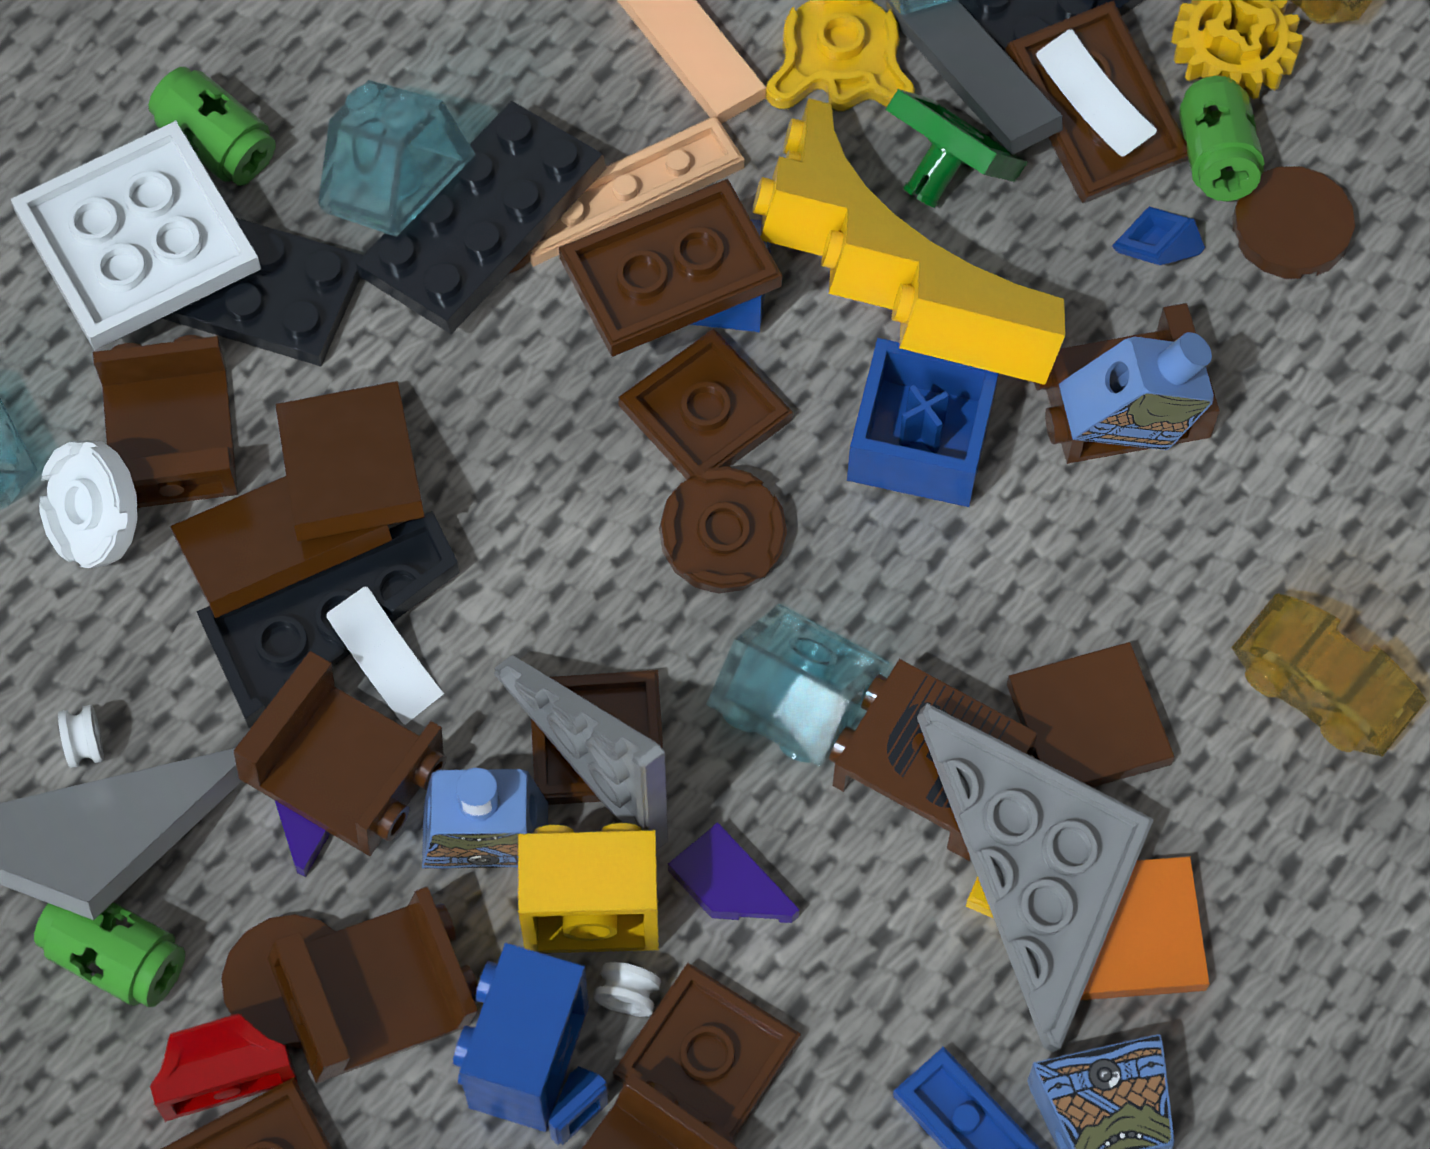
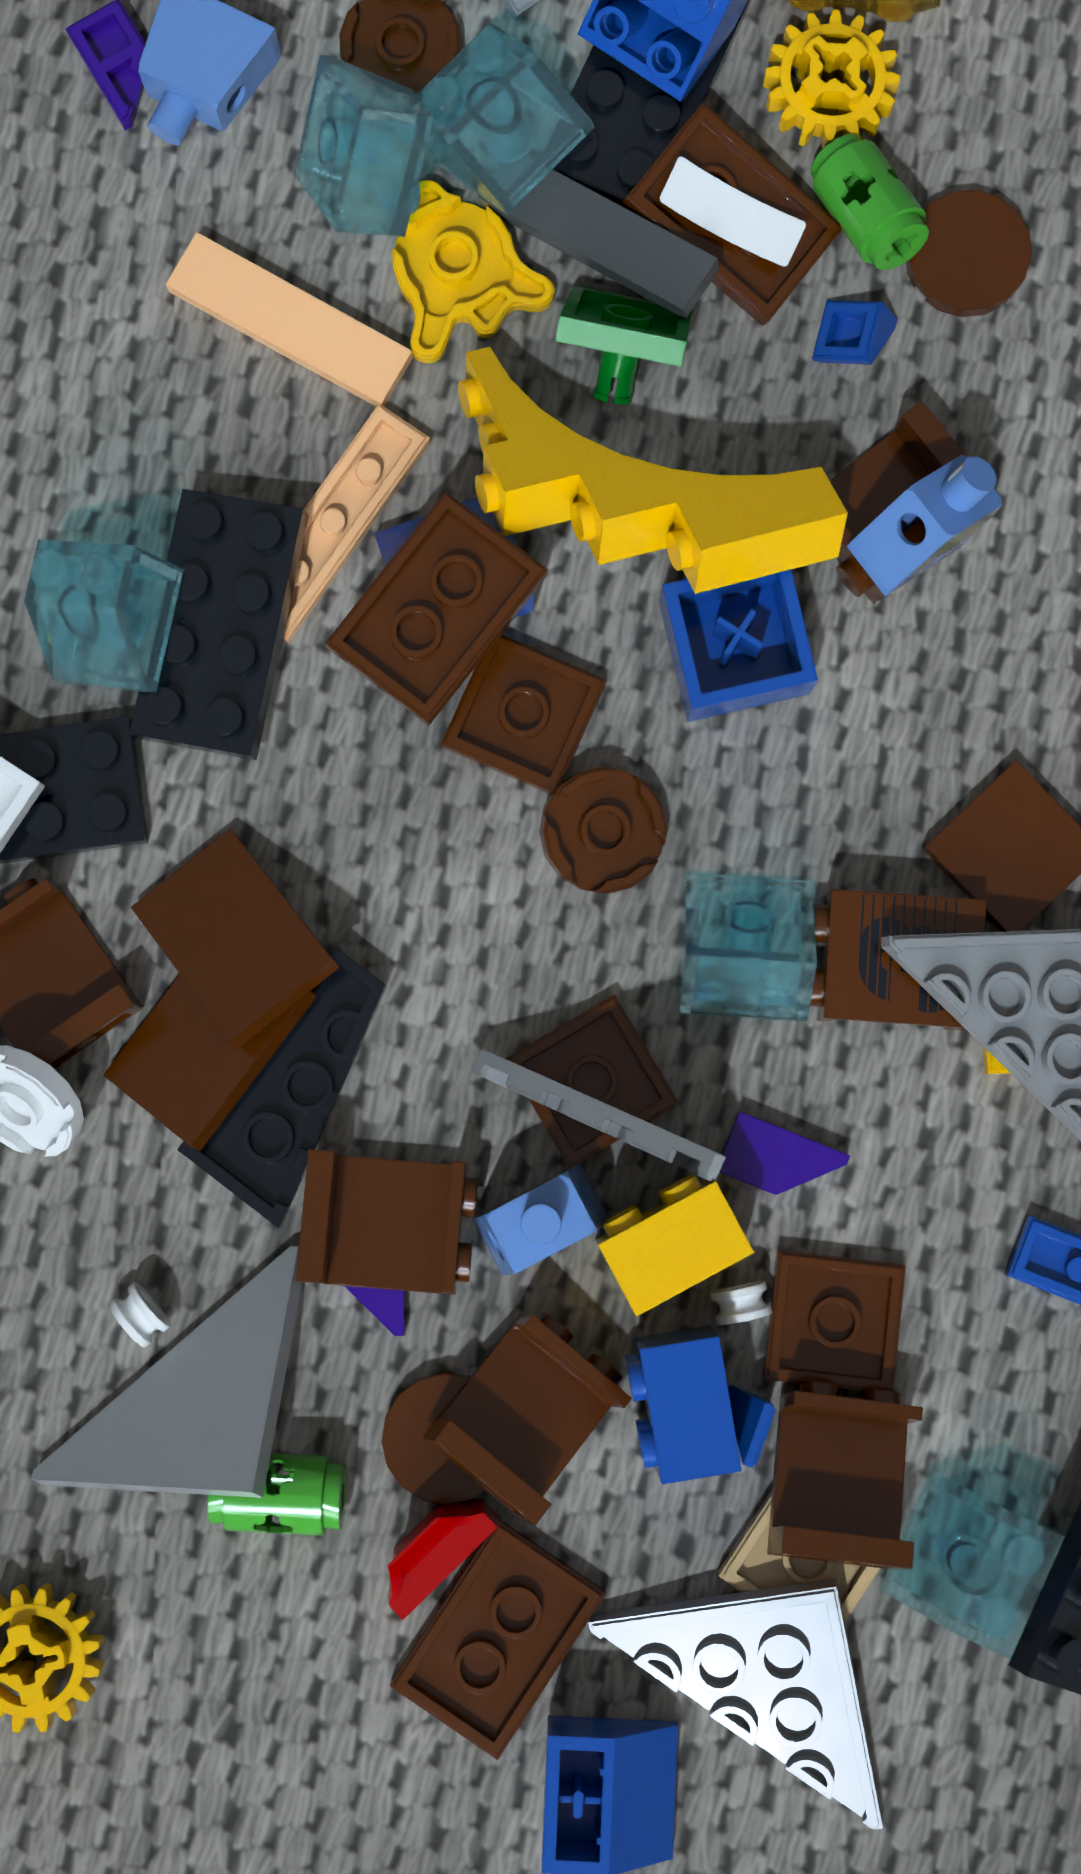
camera: 25 degrees left, 20 degrees up
(384, 655) = (366, 1103): white sticker -> none

